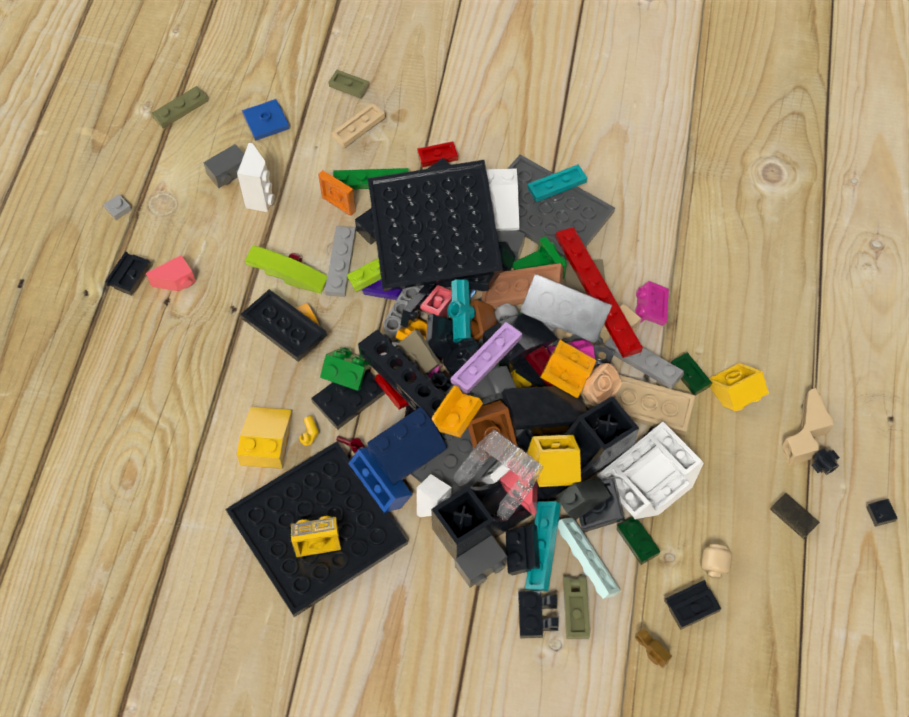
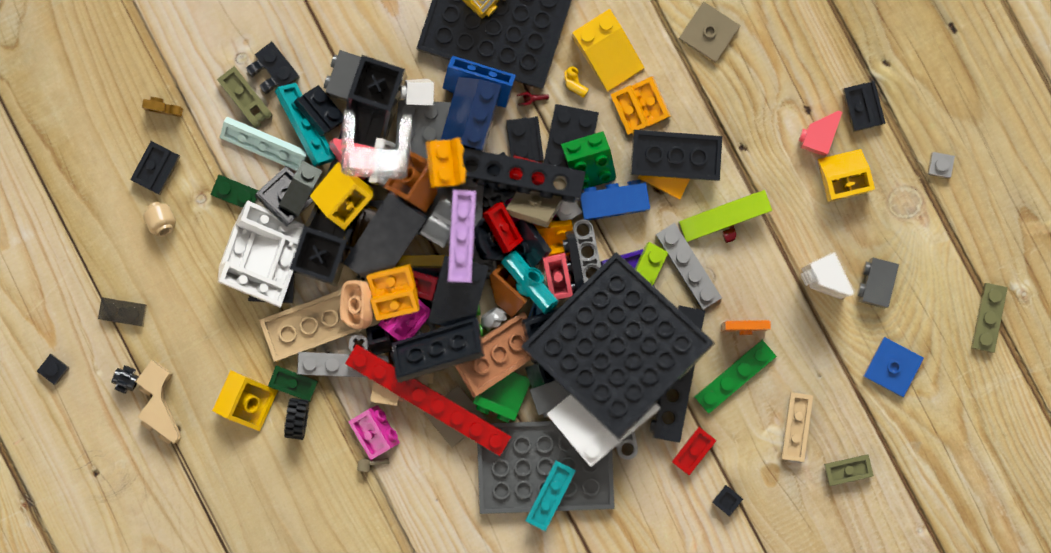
camera: 140 degrees right, 25 degrees up
(182, 397) = (709, 32): none -> dark tan plate
(183, 236) = (846, 175): none -> yellow slope
(277, 383) = (640, 105): none -> light orange slope
(348, 327) = (614, 200): none -> blue brick
(380, 417) = (525, 138): none -> black plate
(440, 115) = (727, 500): none -> black plate
(450, 354) = (502, 227): none -> red plate
(622, 364) = (352, 344): none -> light grey bush
(674, 291) = (364, 464): none -> dark tan hand
(706, 344) = (296, 418): none -> black tyre

